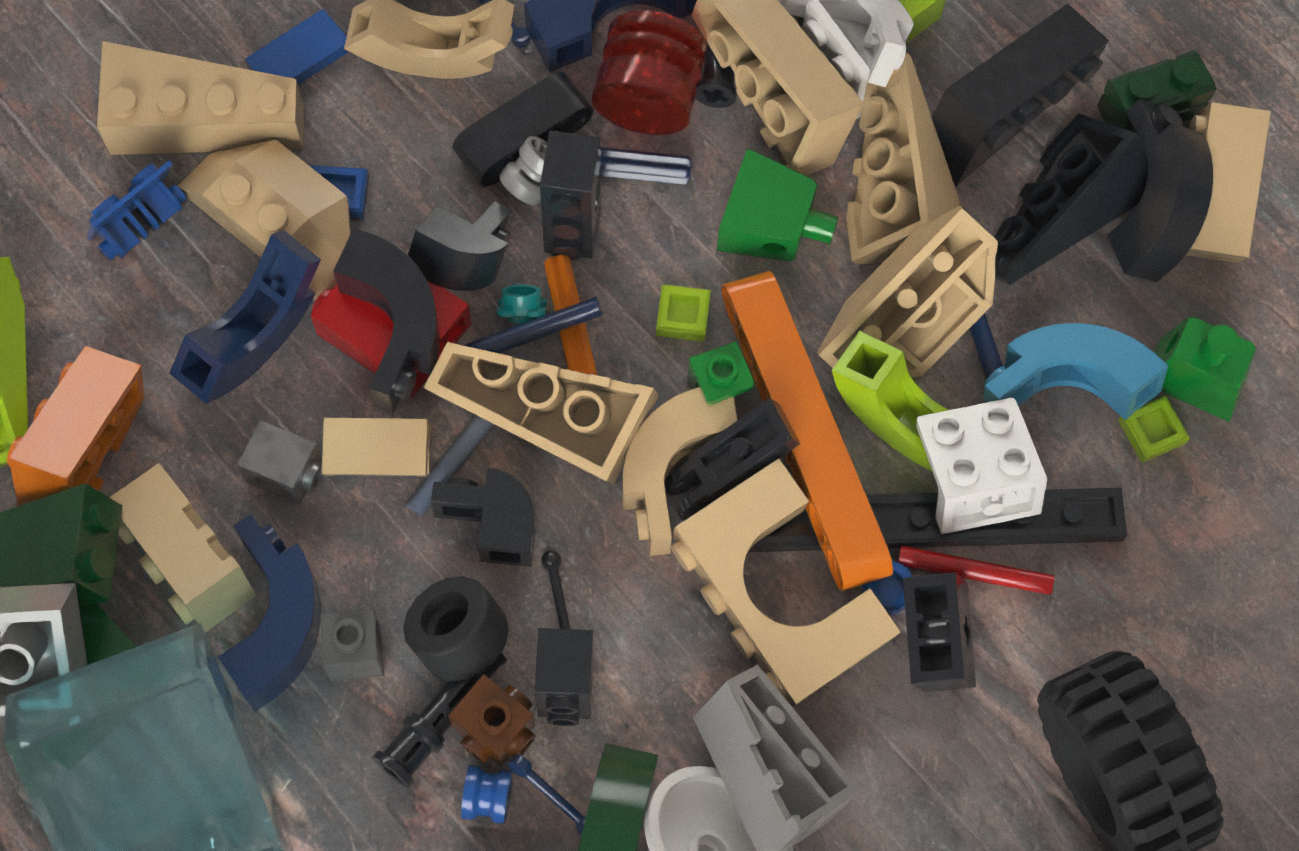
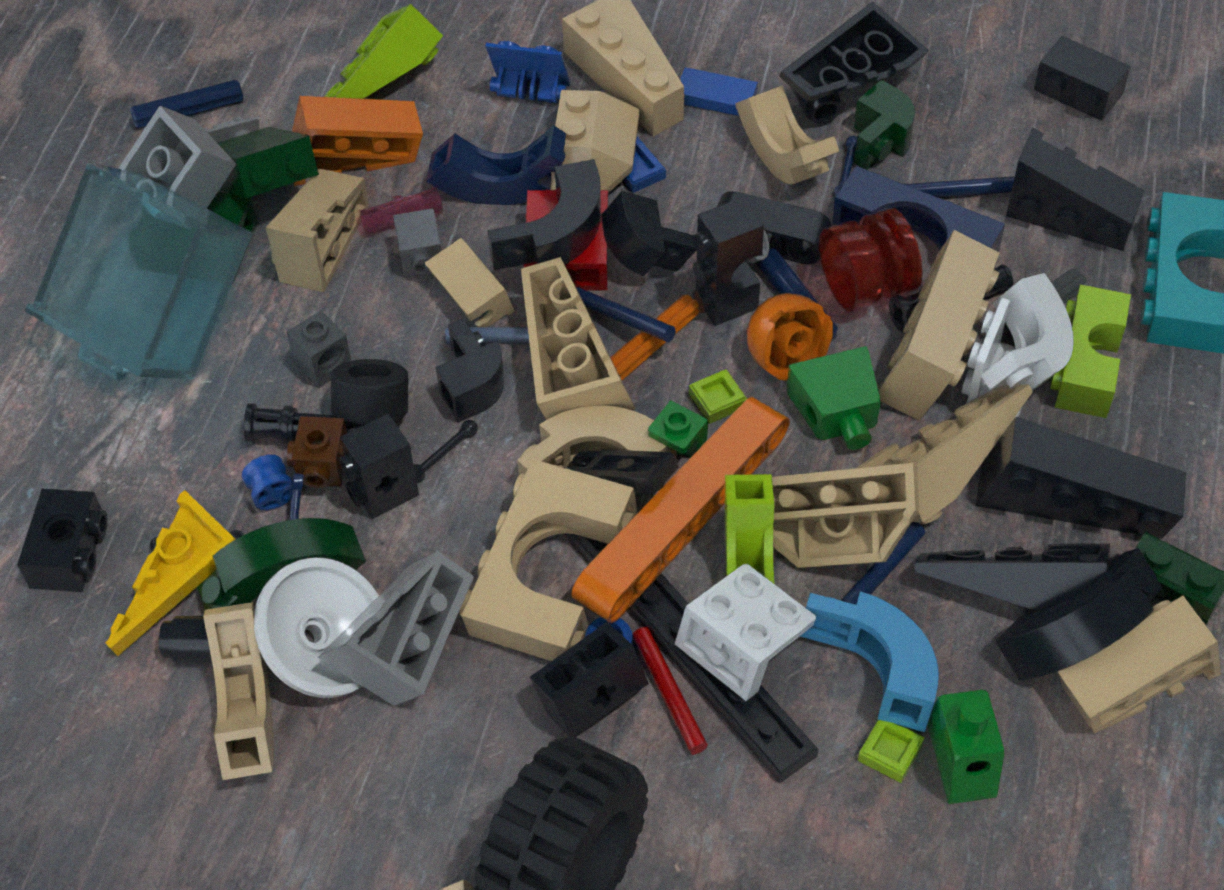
camera: 60 degrees right, 15 degrees down
(213, 453) = (381, 216): none -> clear pink pin
(286, 637) = (341, 295): dark blue arch -> none
(521, 303) = (640, 299): teal plate -> none
(670, 205) = (788, 332): none -> orange cylinder

